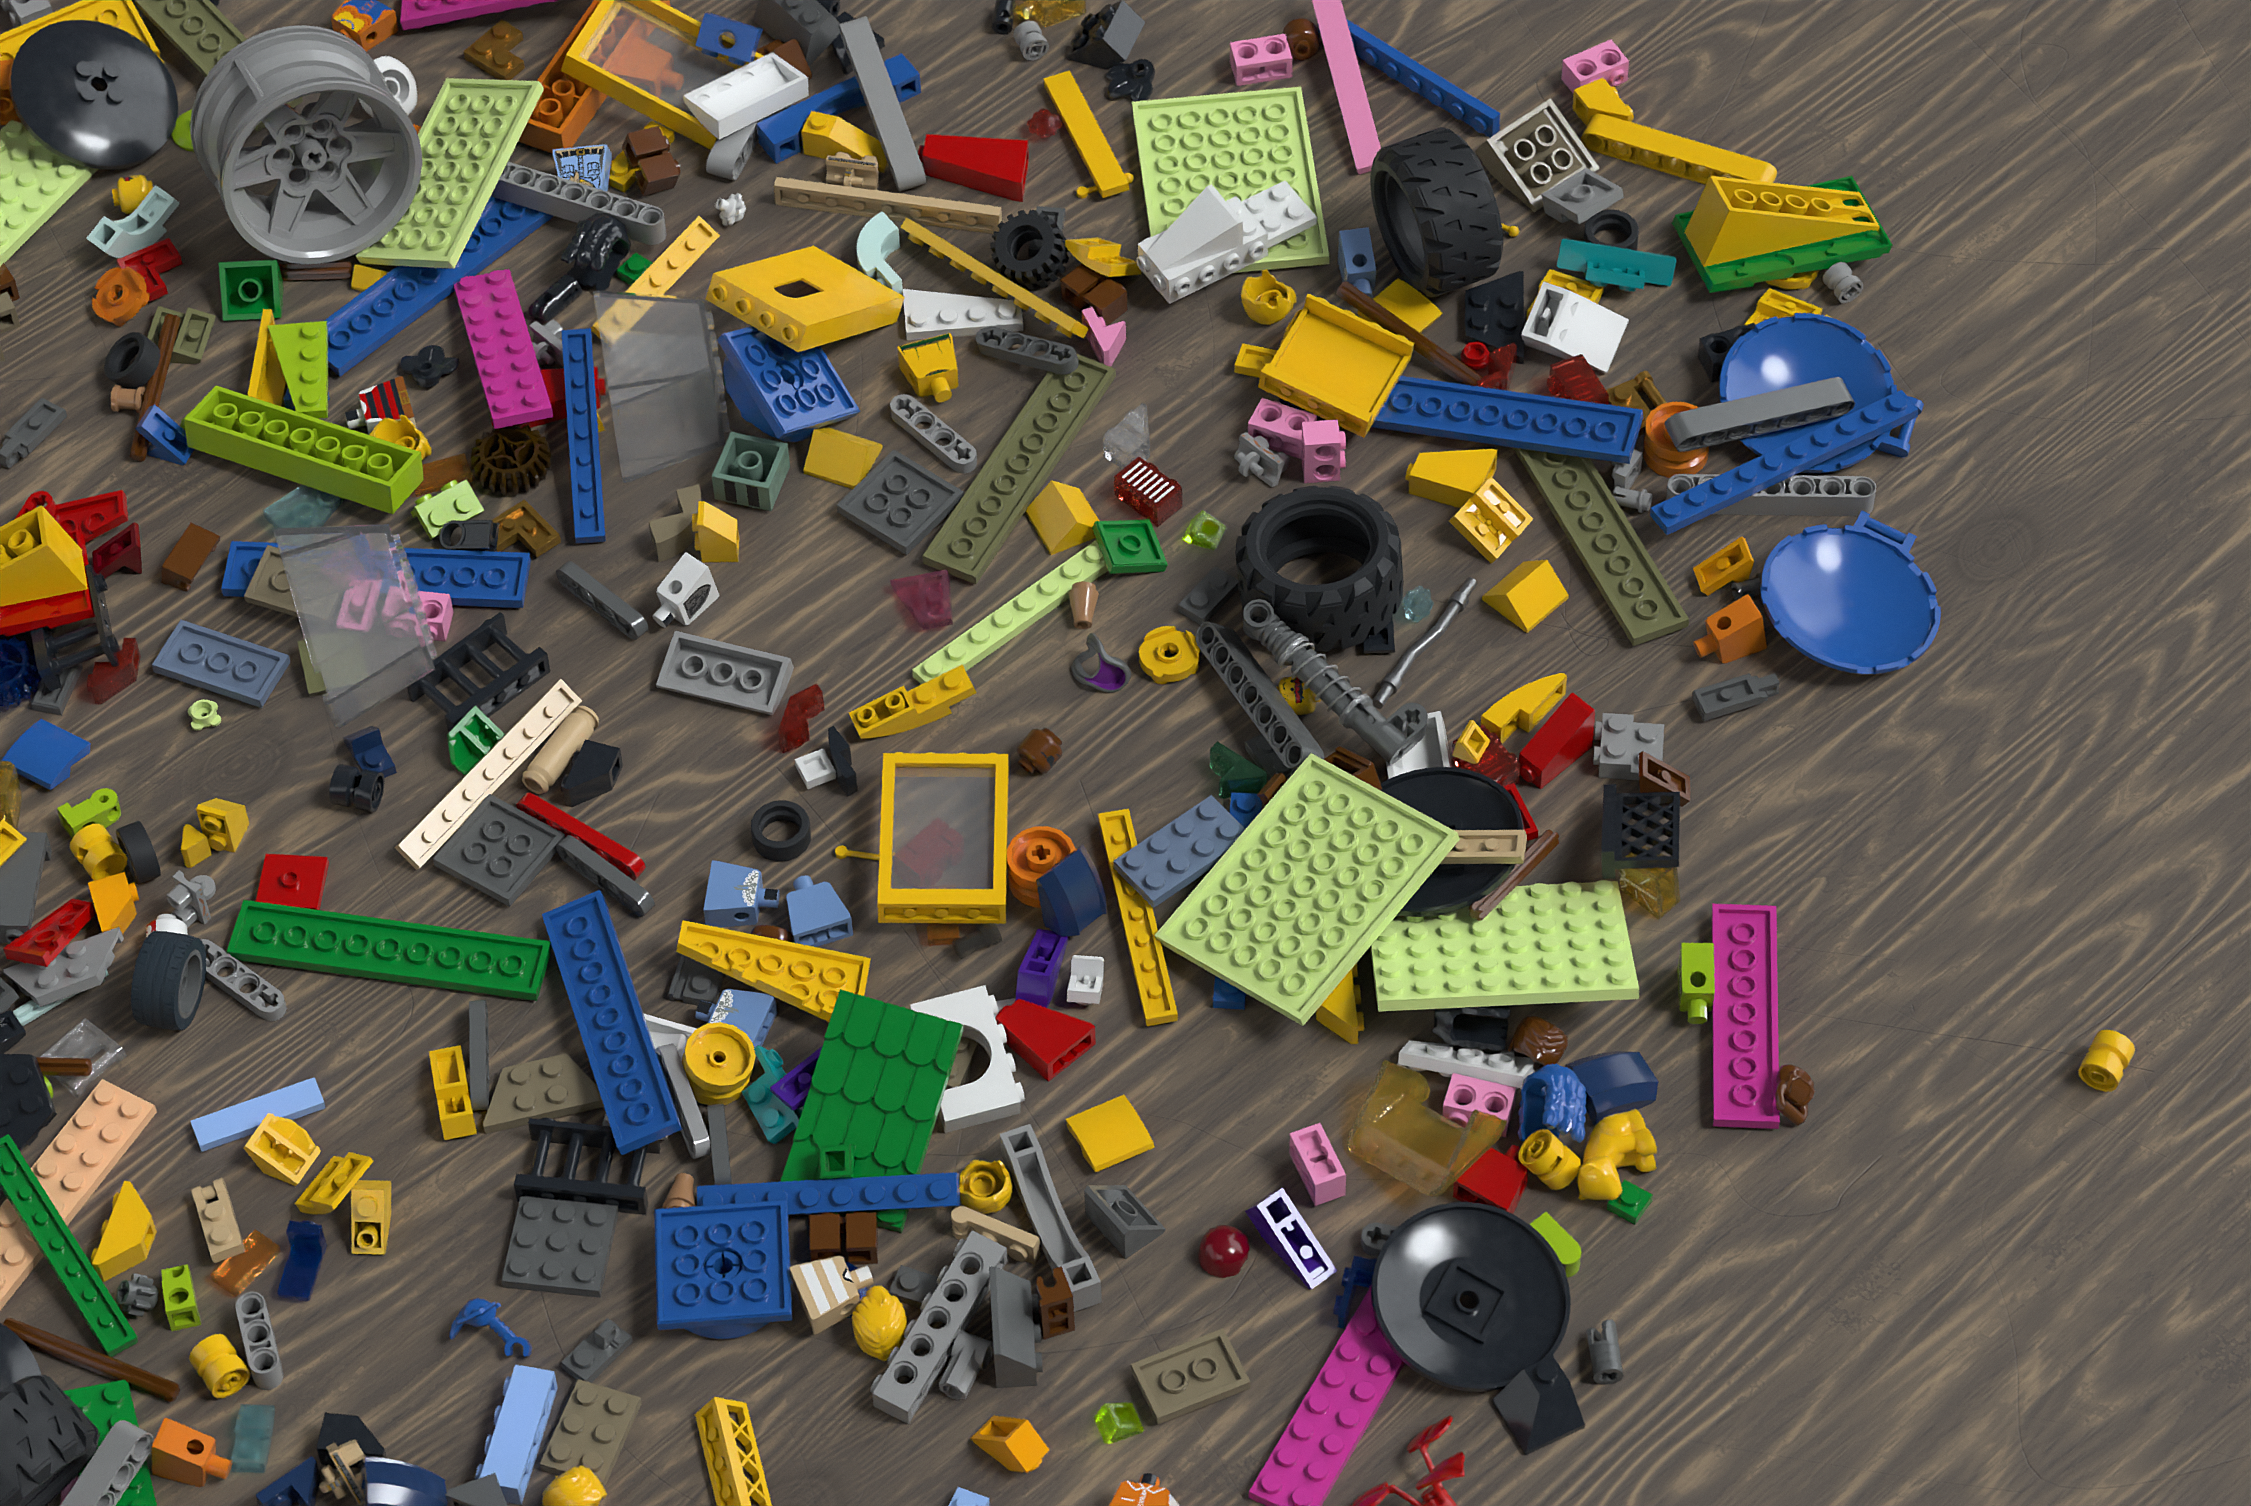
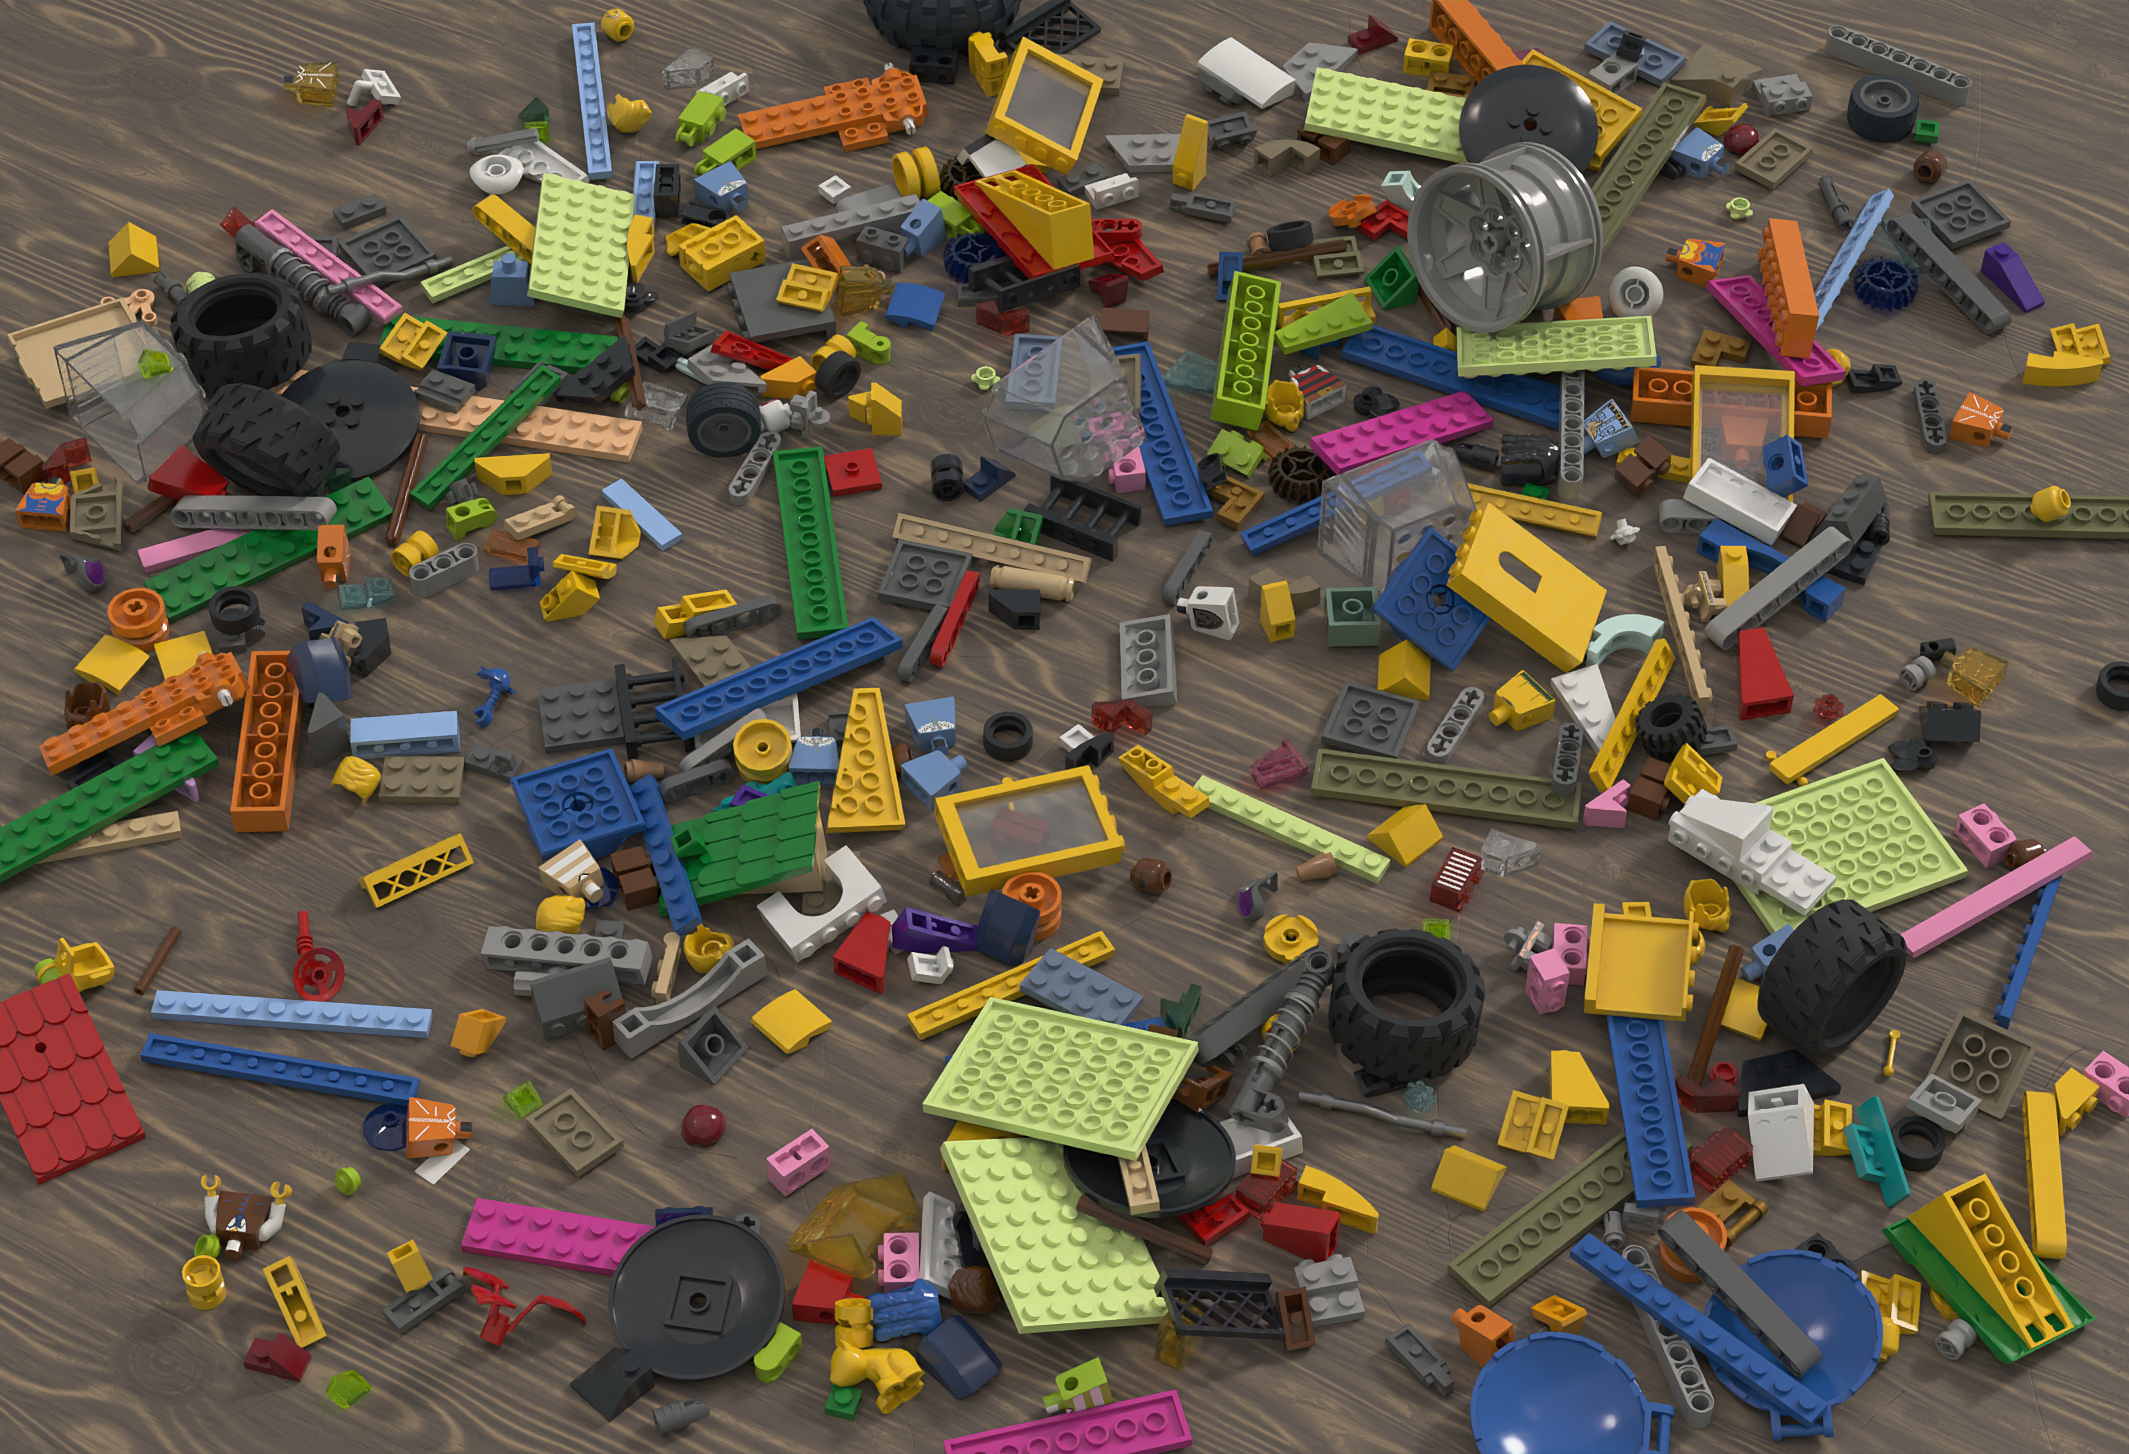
camera: 70 degrees right, 5 degrees down
(1129, 546) = (1391, 882): green tile -> none
(1291, 1238) = (725, 1165): dark purple slope -> none

